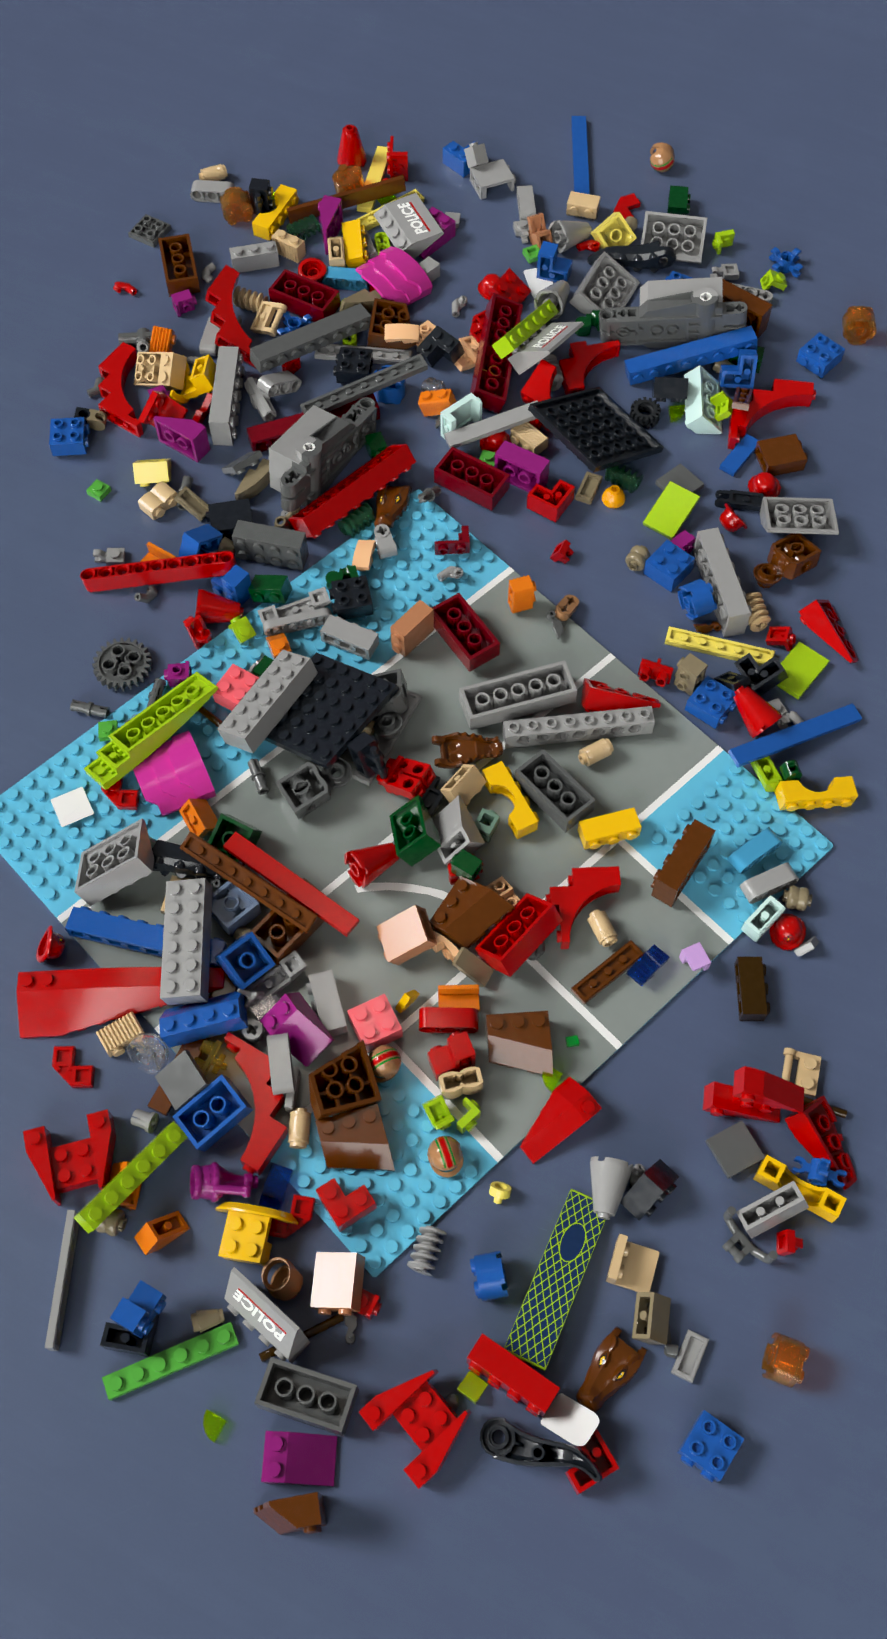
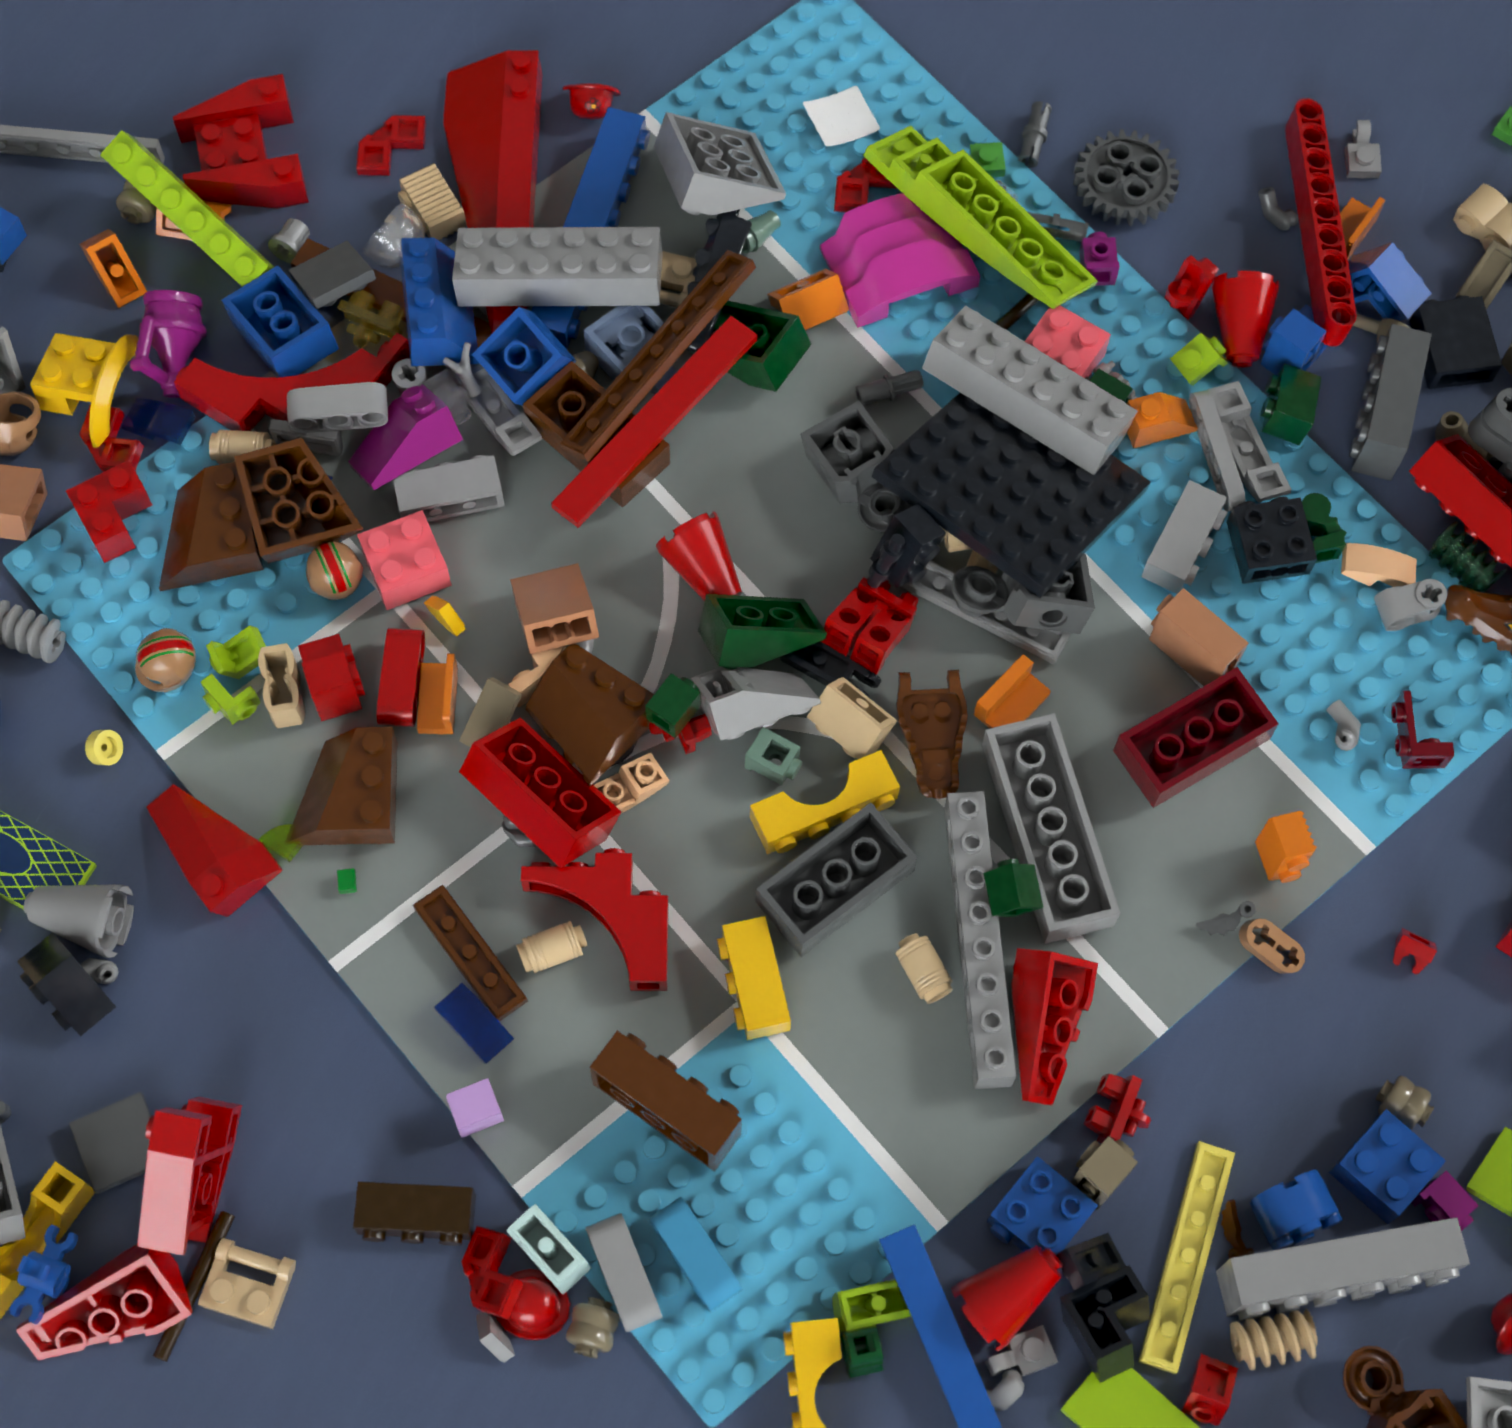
camera: 90 degrees right, 5 degrees up
(443, 716) = (1012, 696): none -> orange panel
(557, 705) = (1013, 889): none -> dark green brick
(787, 947) = (490, 1291): none -> red tile

